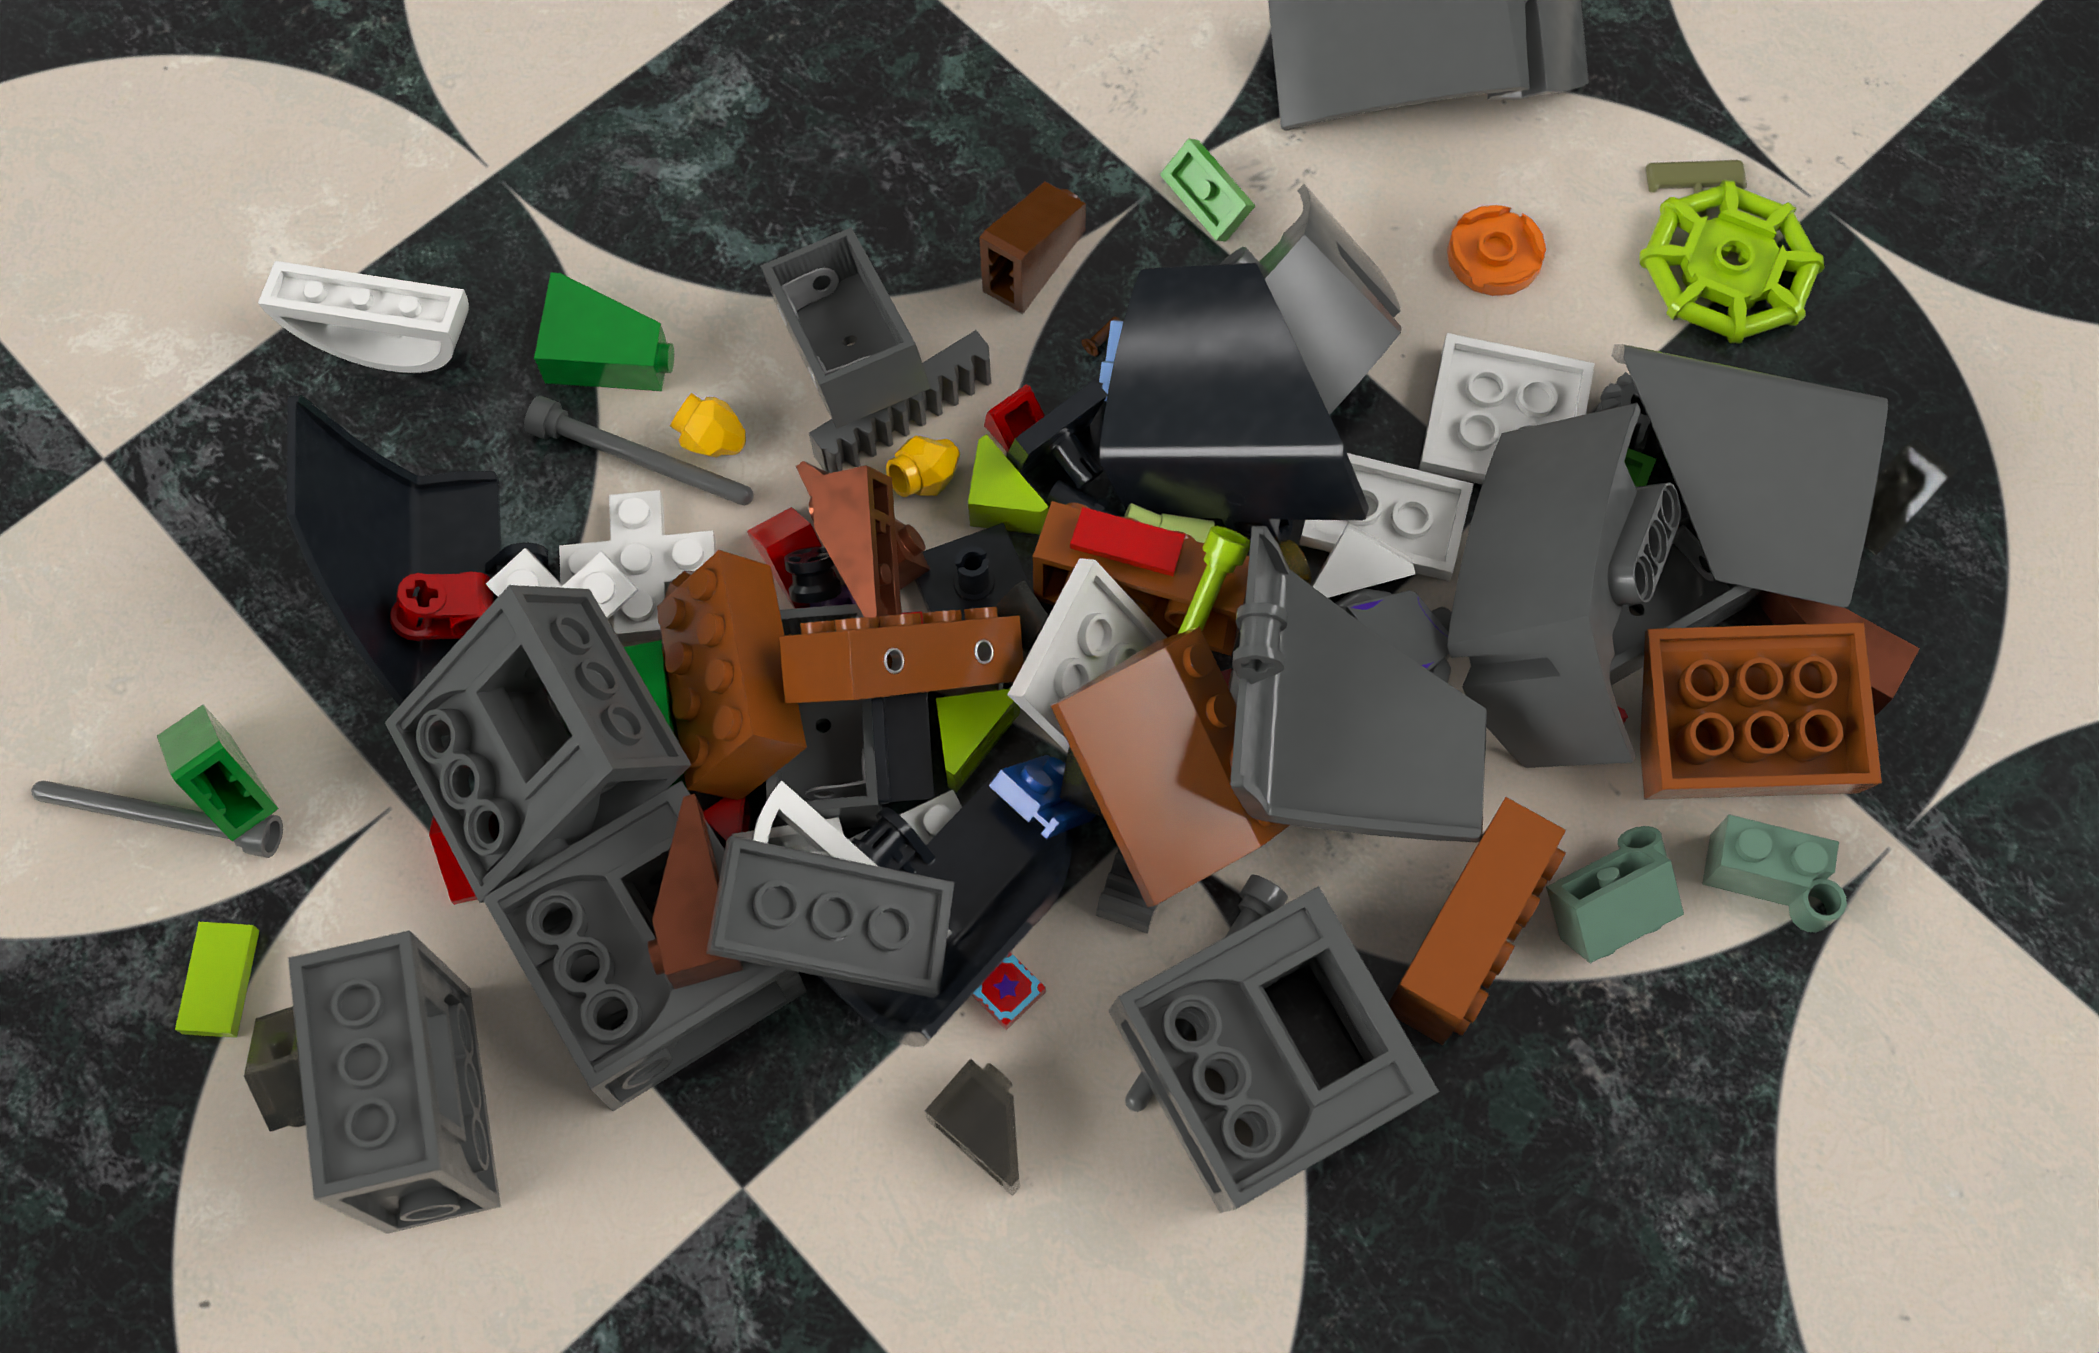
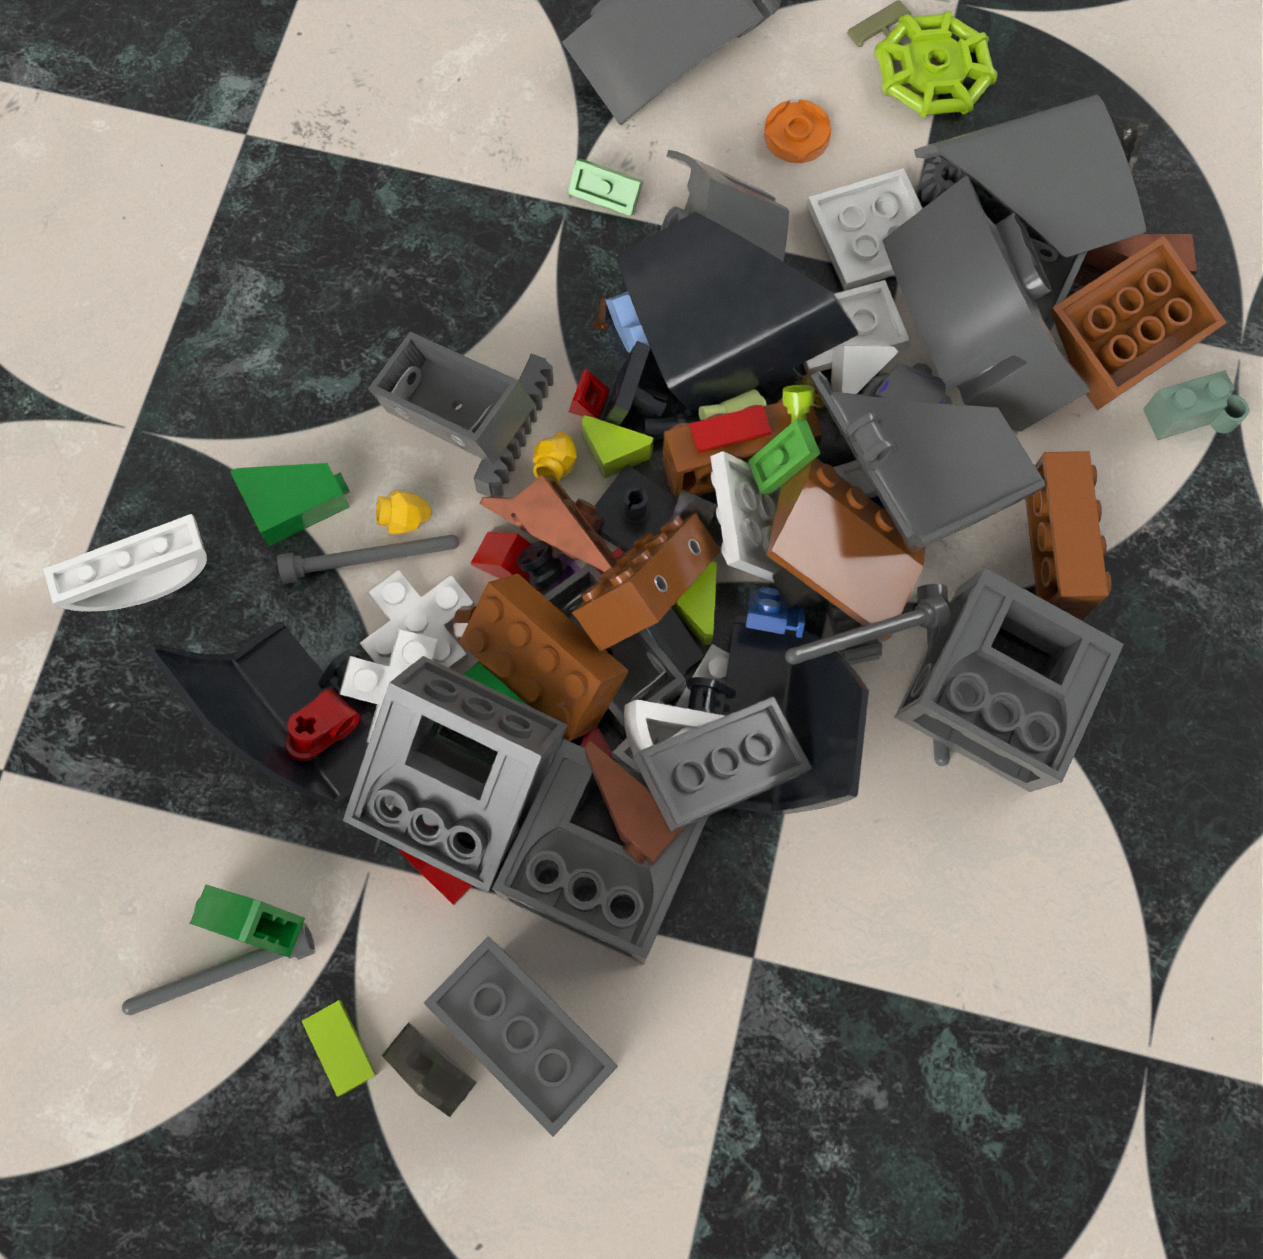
camera: 35 degrees left, 5 degrees up
(980, 1120) = (871, 828): clear smoke slope -> none
(1030, 244) = (523, 281): reddish brown slope -> none
(1167, 610) = (783, 456): none -> bright green plate
(1227, 907) = (930, 613): none -> dark grey piece
(1617, 896) = (1128, 472): sand green hinge -> none

